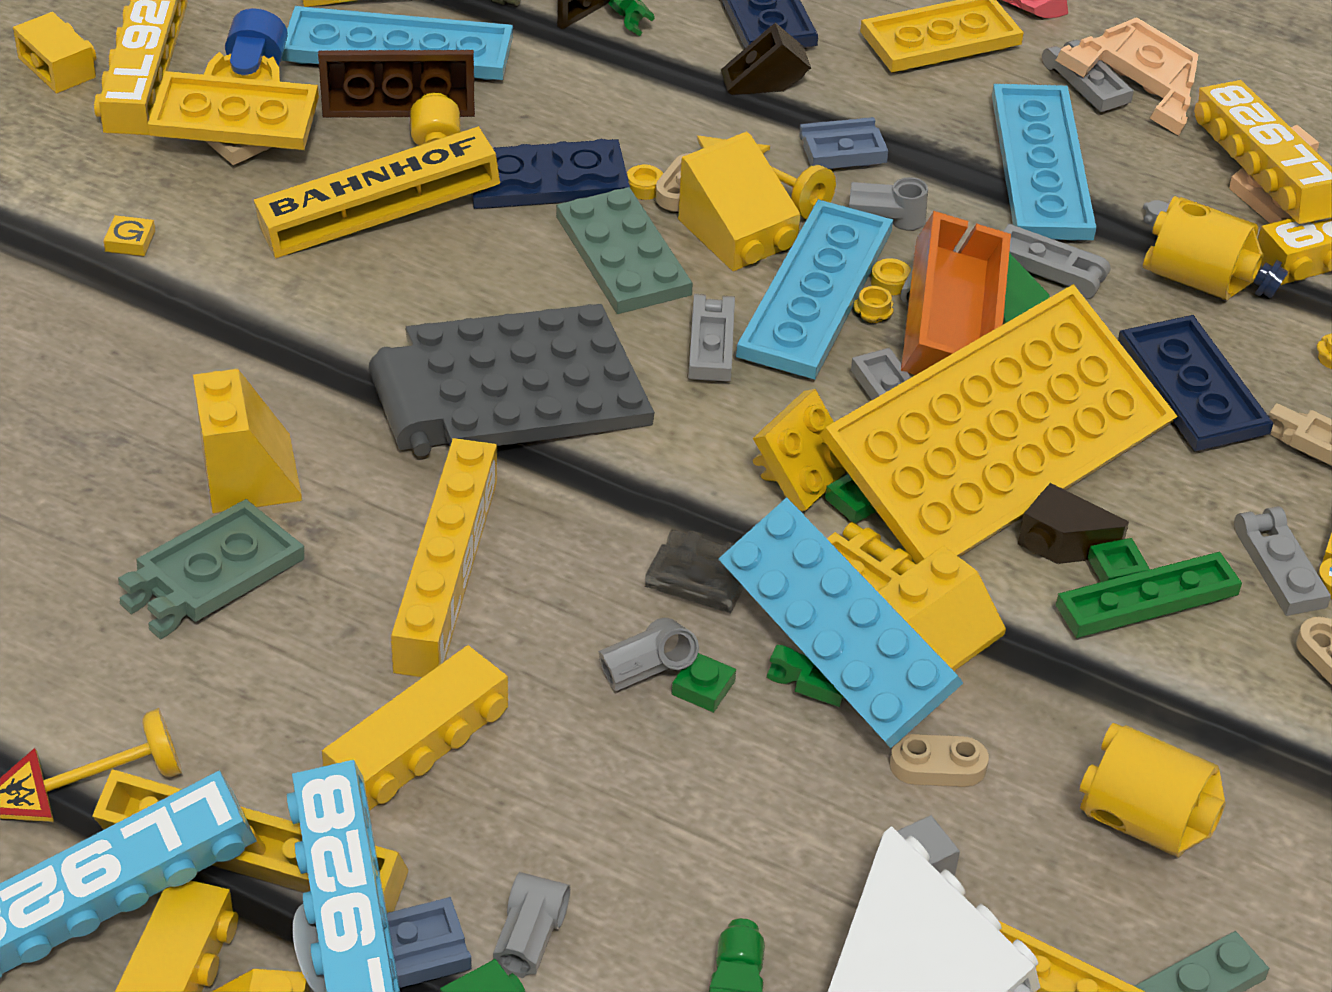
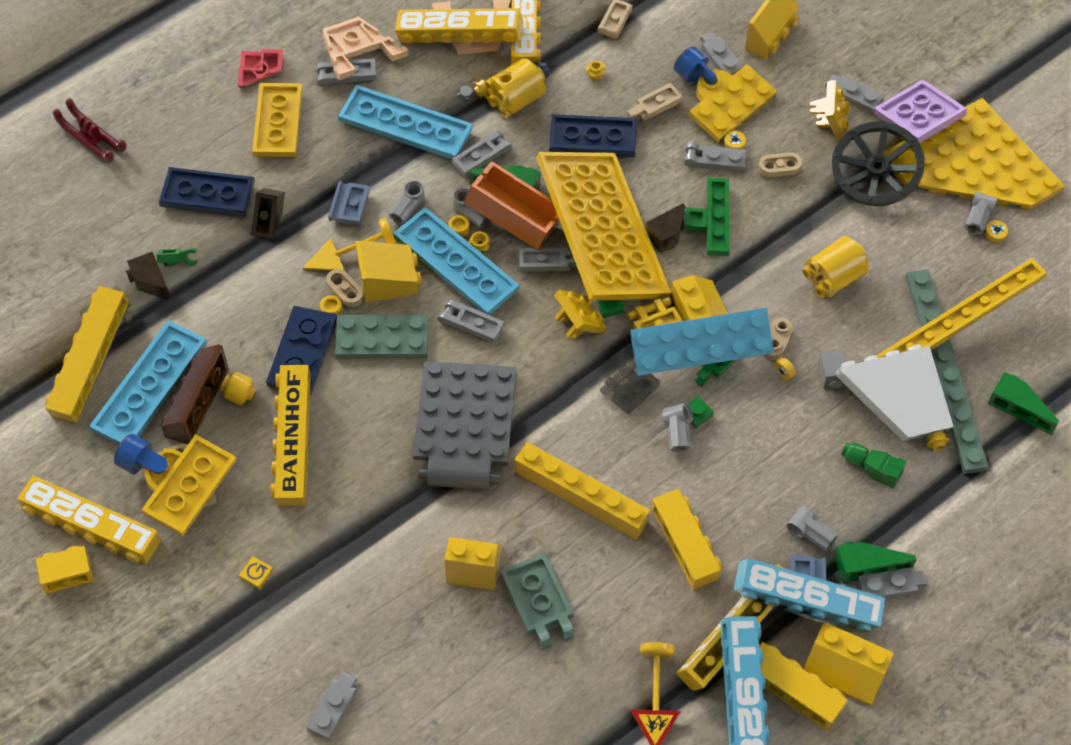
camera: 65 degrees left, 15 degrees up
(871, 781) = (784, 369): none -> yellow tile

